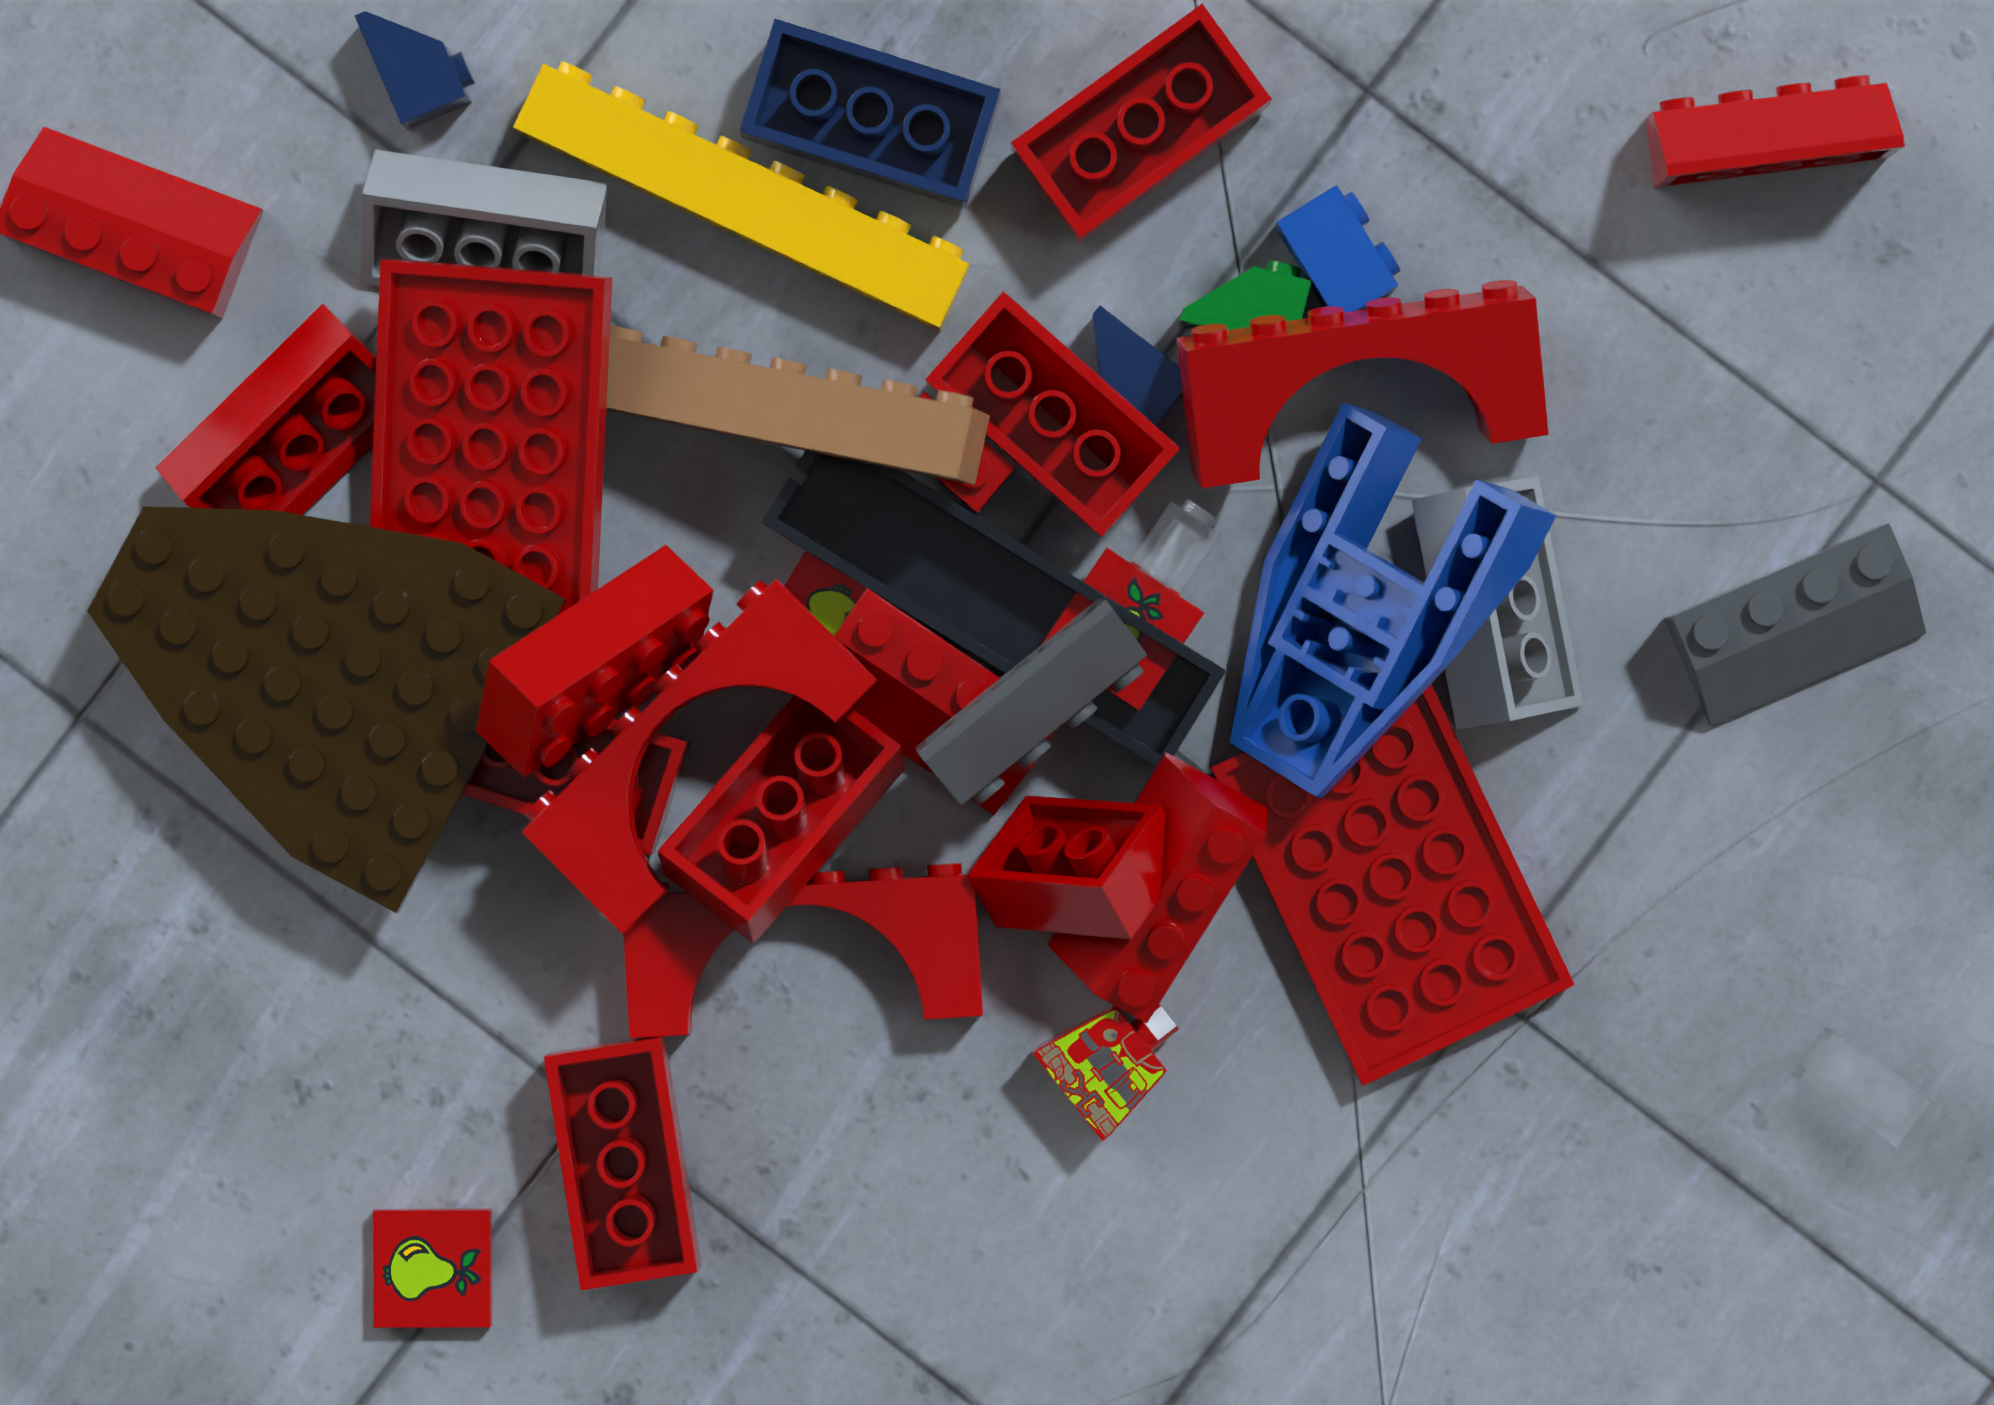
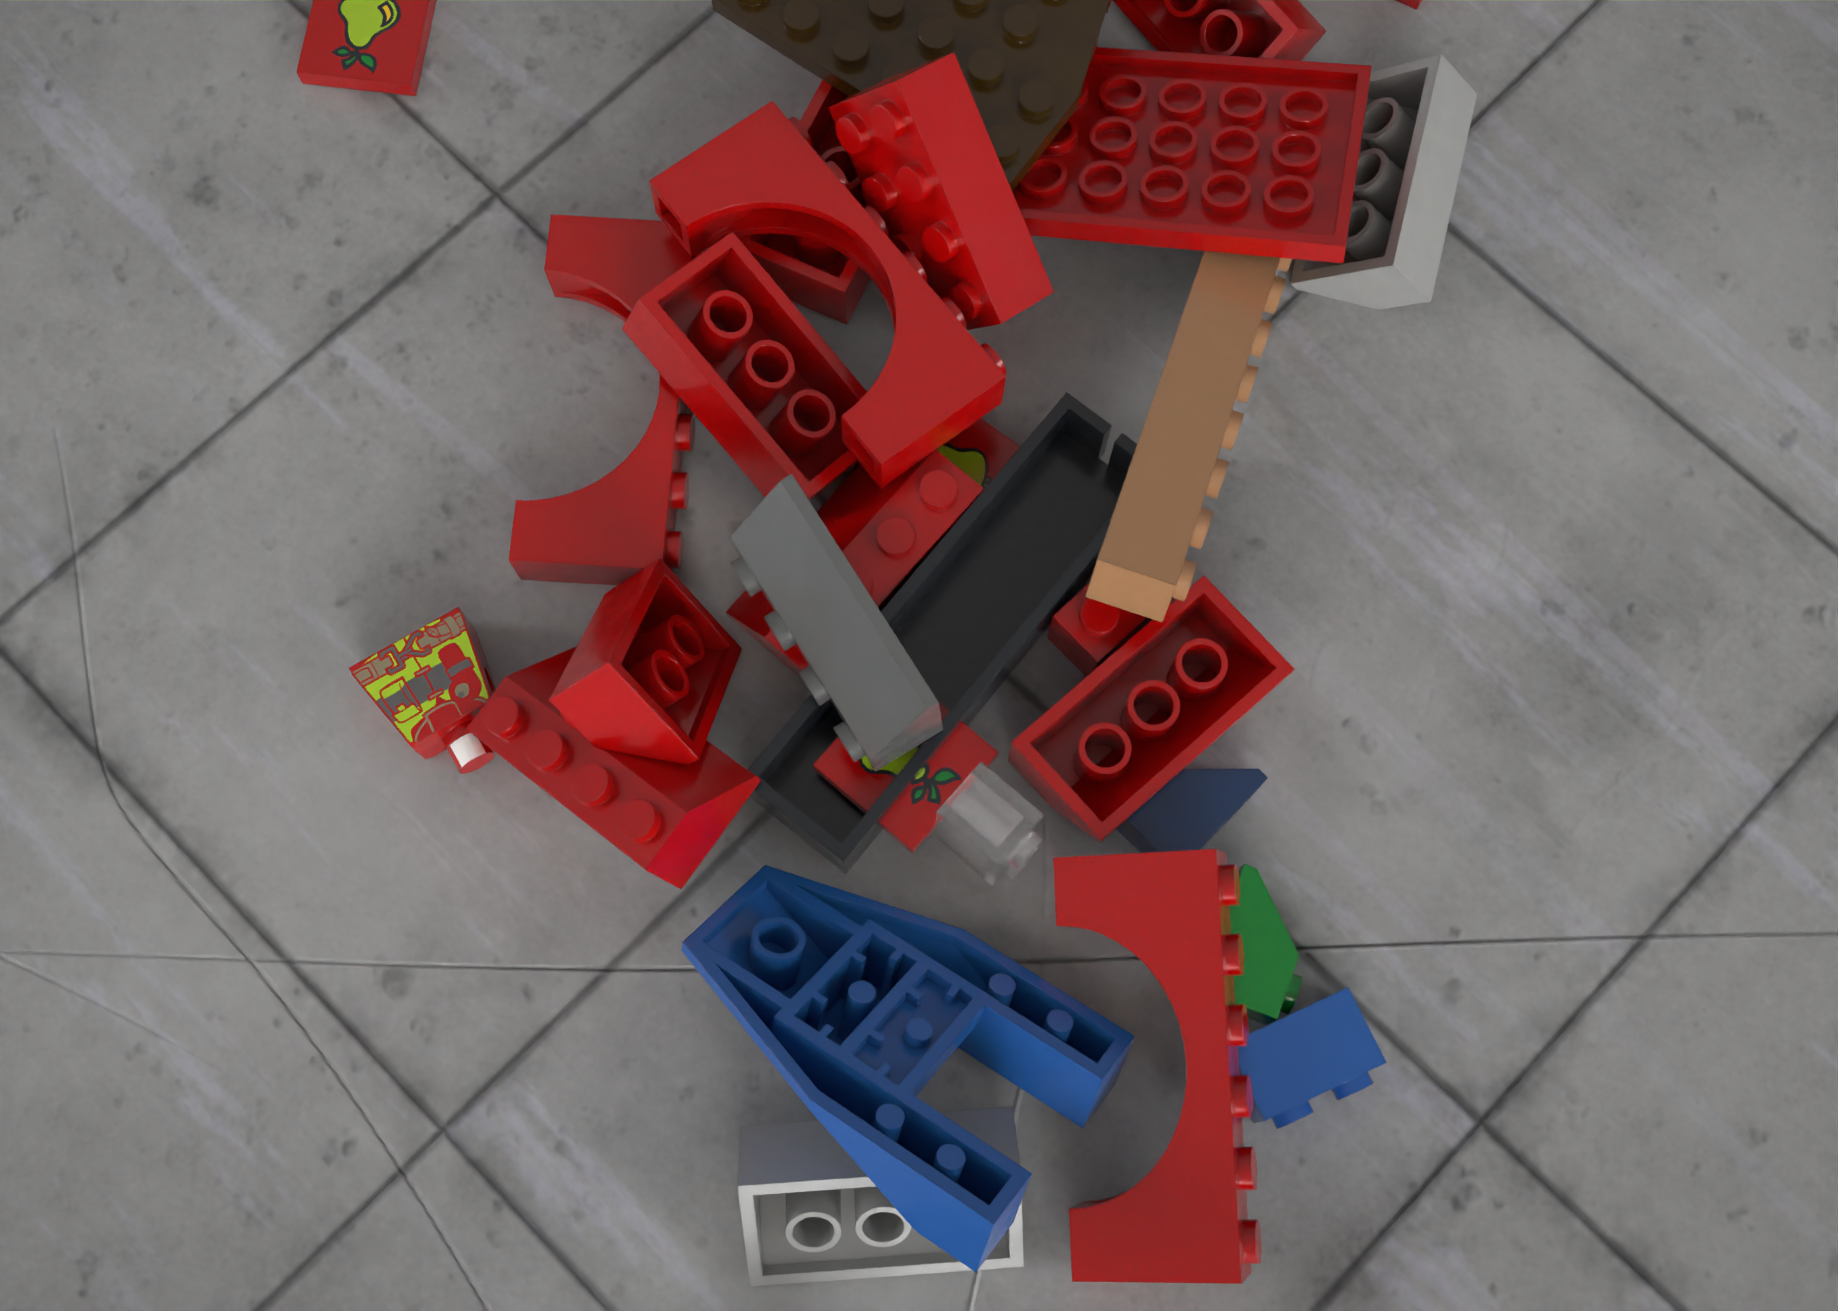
camera: 100 degrees right, 15 degrees down
(416, 70) = (1549, 141): dark blue slope -> none
(622, 1162) = (425, 197): red brick -> none
(742, 196) = (1403, 438): yellow brick -> none
(870, 113) = (1492, 566): dark blue brick -> none
(1140, 123) = (1467, 851): red brick -> none
(1402, 895) = (563, 1043): red plate -> none

